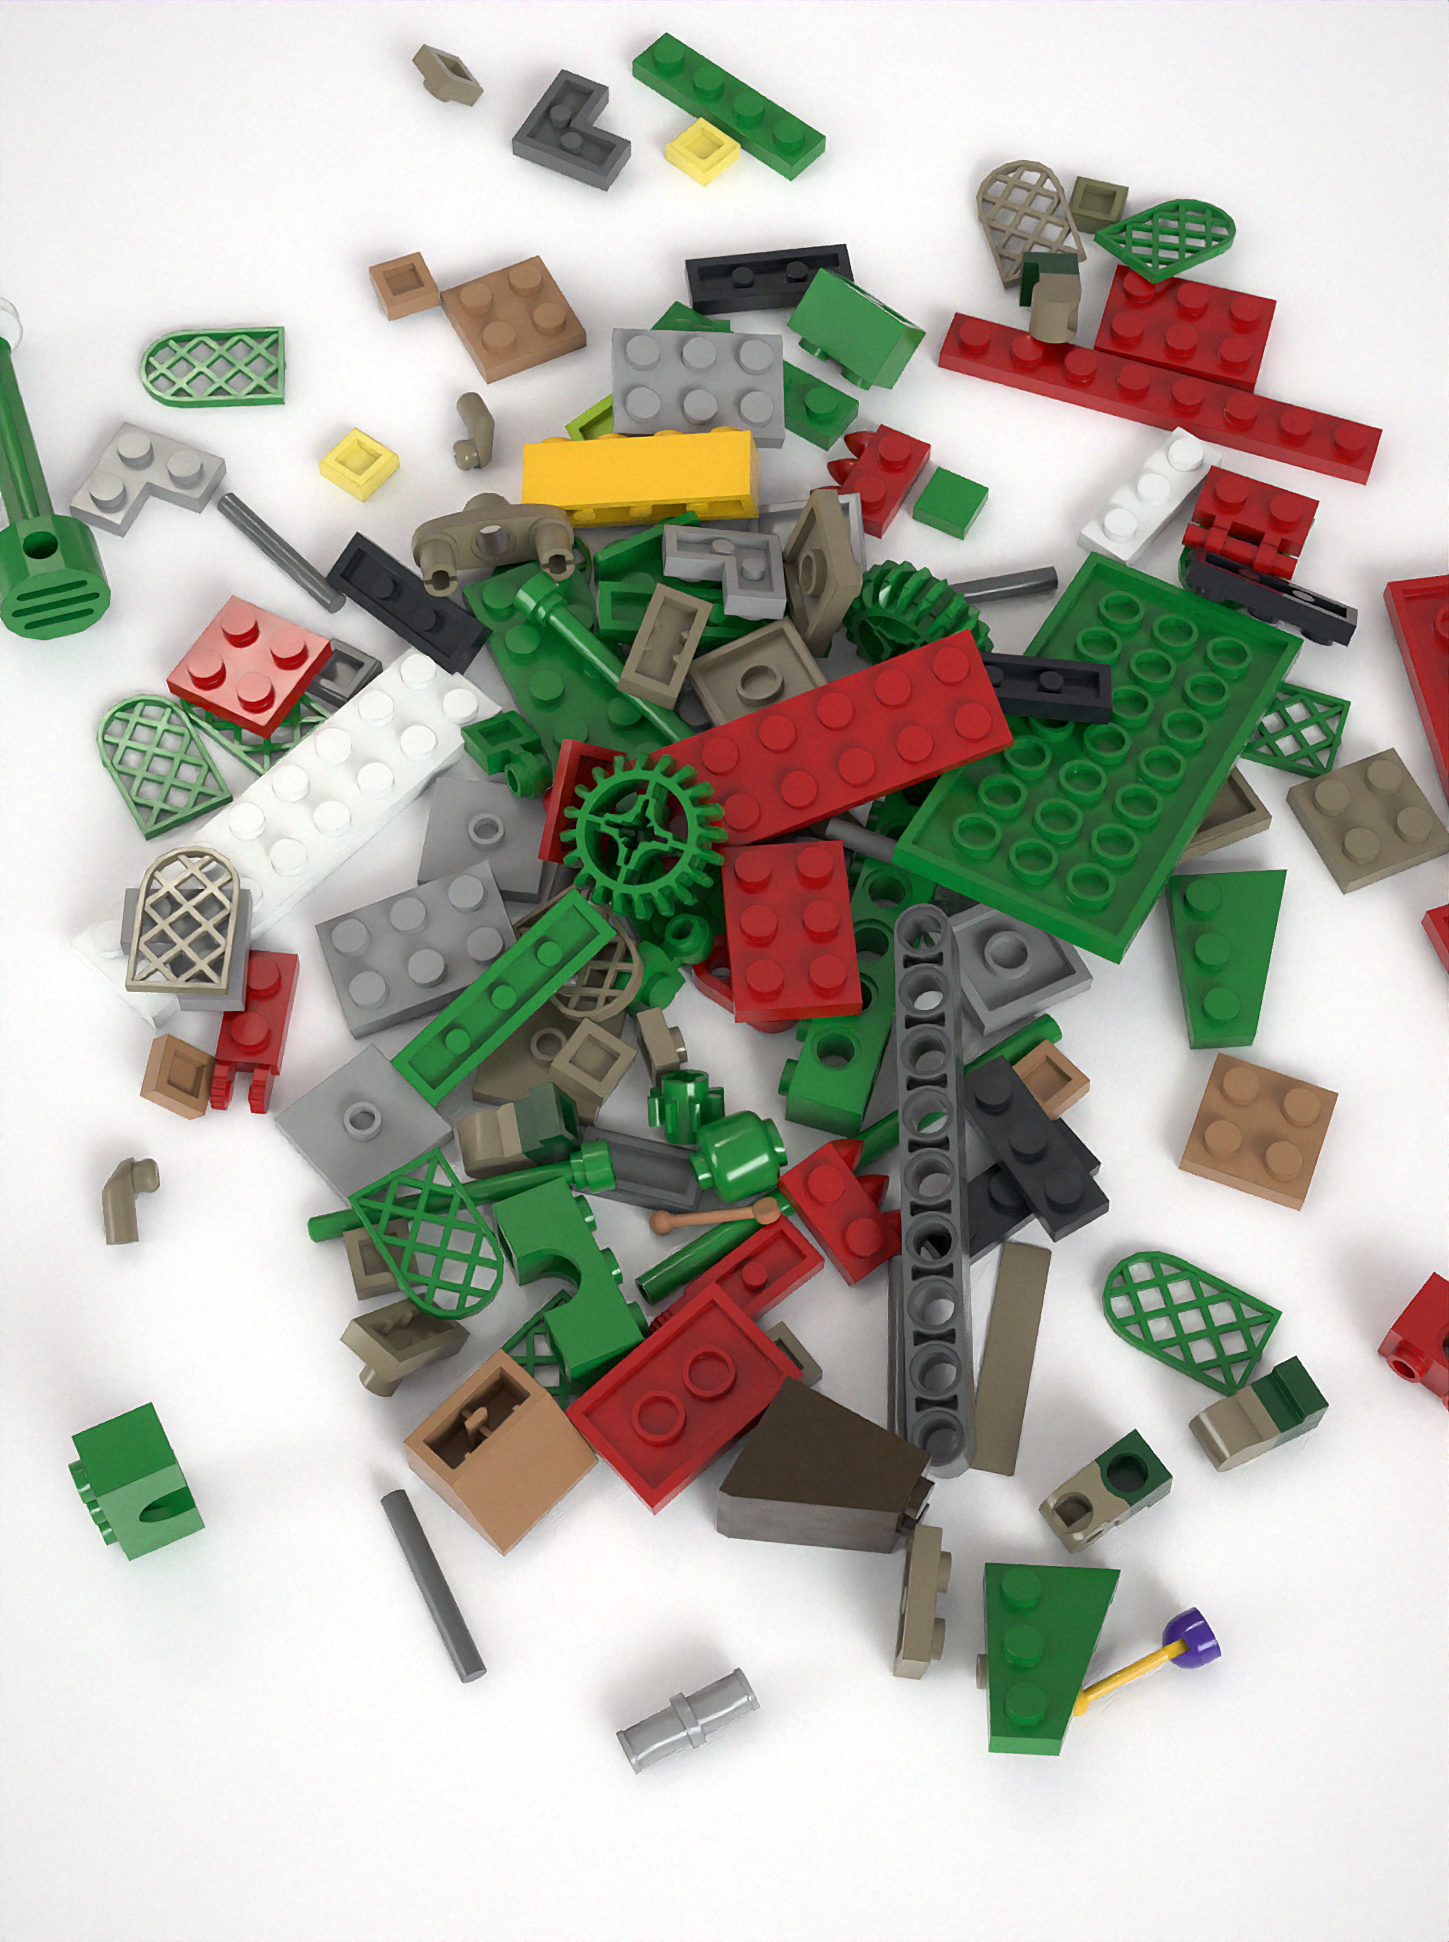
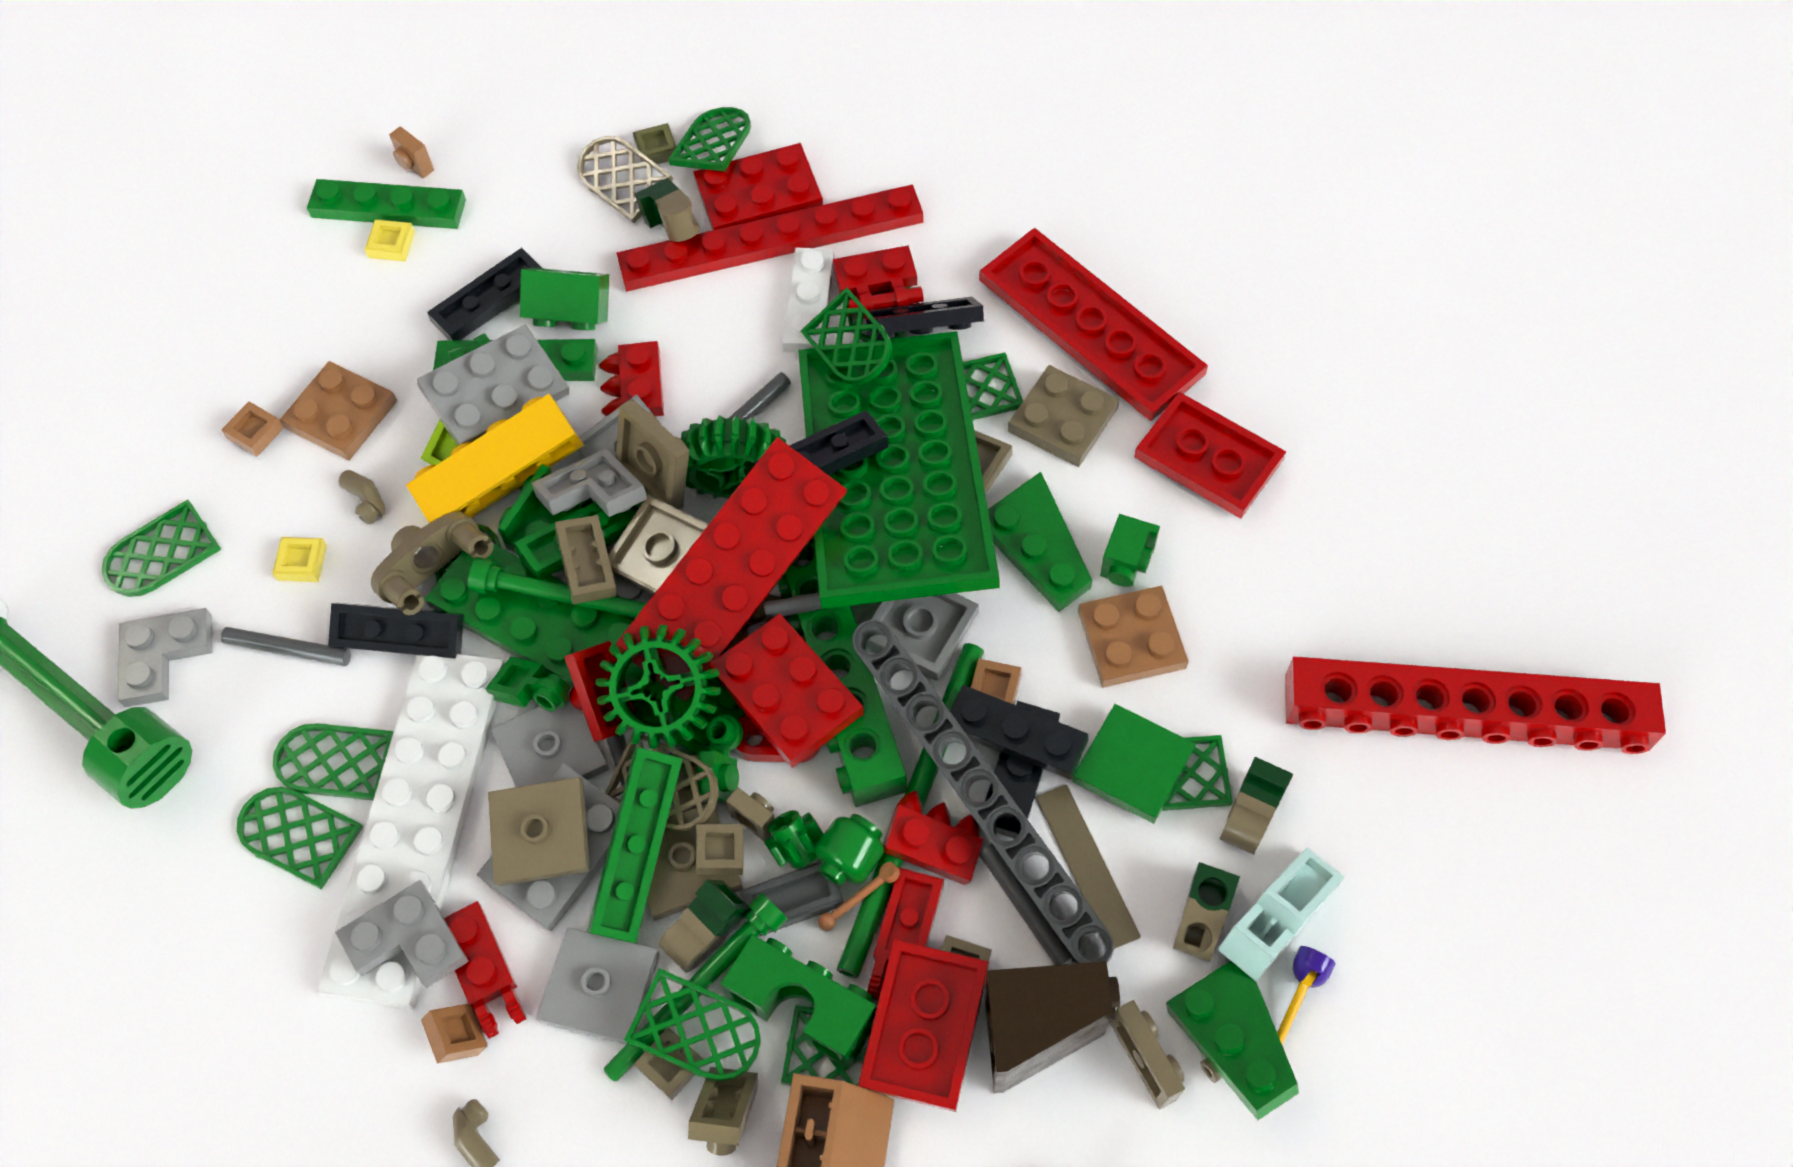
camera: 30 degrees left, 0 degrees up
(219, 986) = (357, 935): window -> none
(249, 667) = (316, 733): plate -> none
(344, 674) = (379, 700): dark grey tile -> none
(409, 917) = (538, 831): none -> dark tan plate
(446, 76) = (190, 281): dark tan plate -> none
(563, 137) = (294, 279): dark grey plate -> none
(794, 59) = (410, 152): none -> medium nougat plate
(950, 503) = (692, 369): green tile -> none
(1146, 529) = (830, 310): none -> green window
(1148, 1275) = (1134, 763): none -> green tile
(1197, 1554) = (1280, 913): none -> light aqua slope
(1326, 1026) = (1128, 550): none -> green brick

